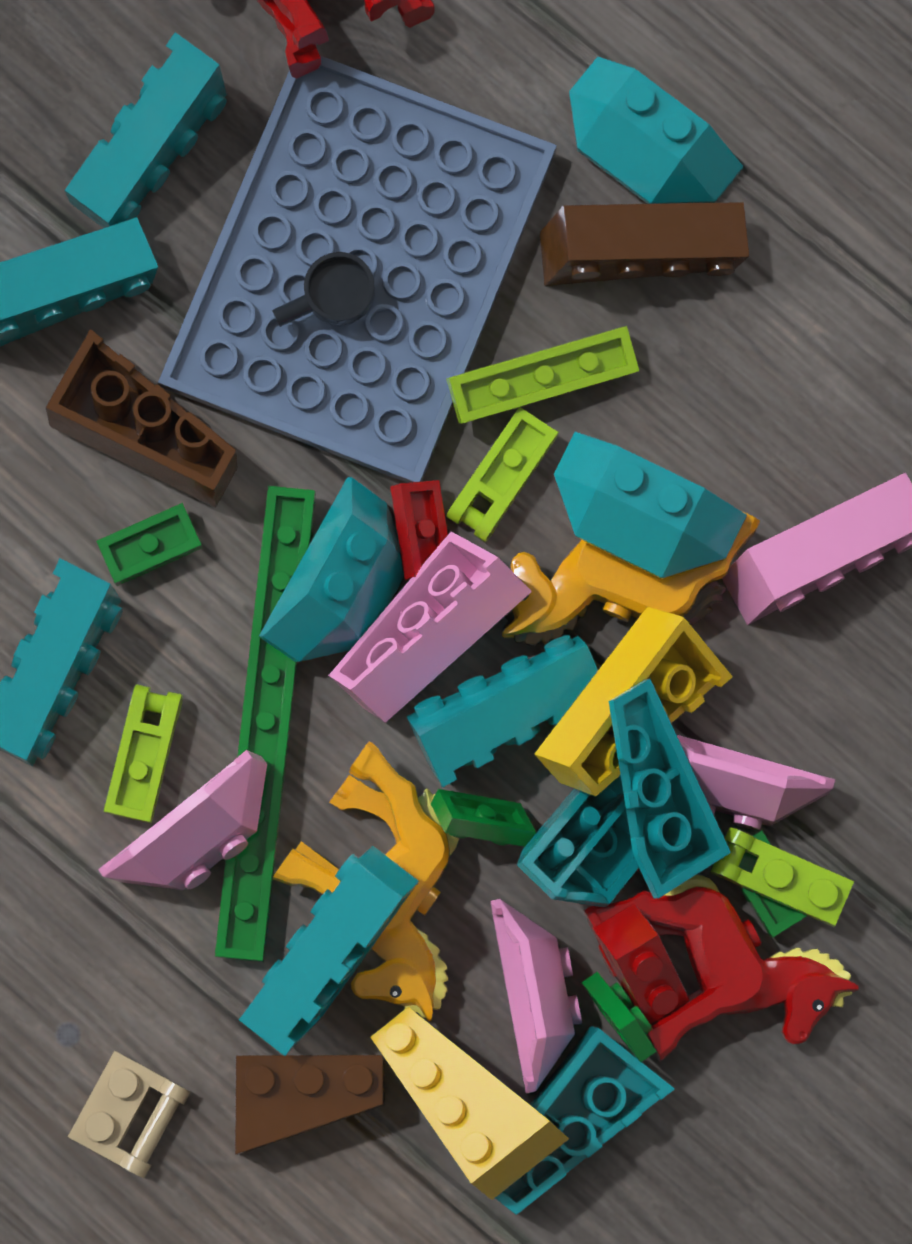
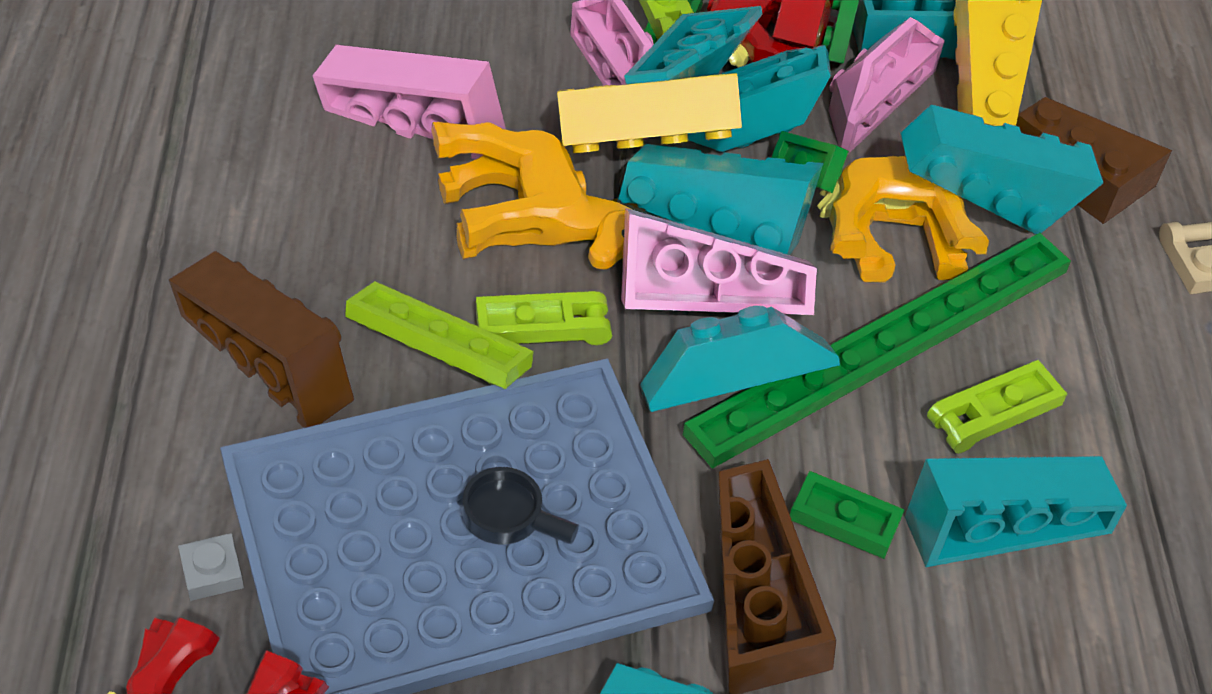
camera: 140 degrees left, 30 degrees down
(197, 832) = (1023, 316): bright pink wedge -> none
(418, 522) = (640, 337): red plate -> none
(466, 84) = (210, 567): none -> light grey plate
(642, 509) = (498, 182): teal wedge -> none
(648, 137) = (155, 405): teal wedge -> none

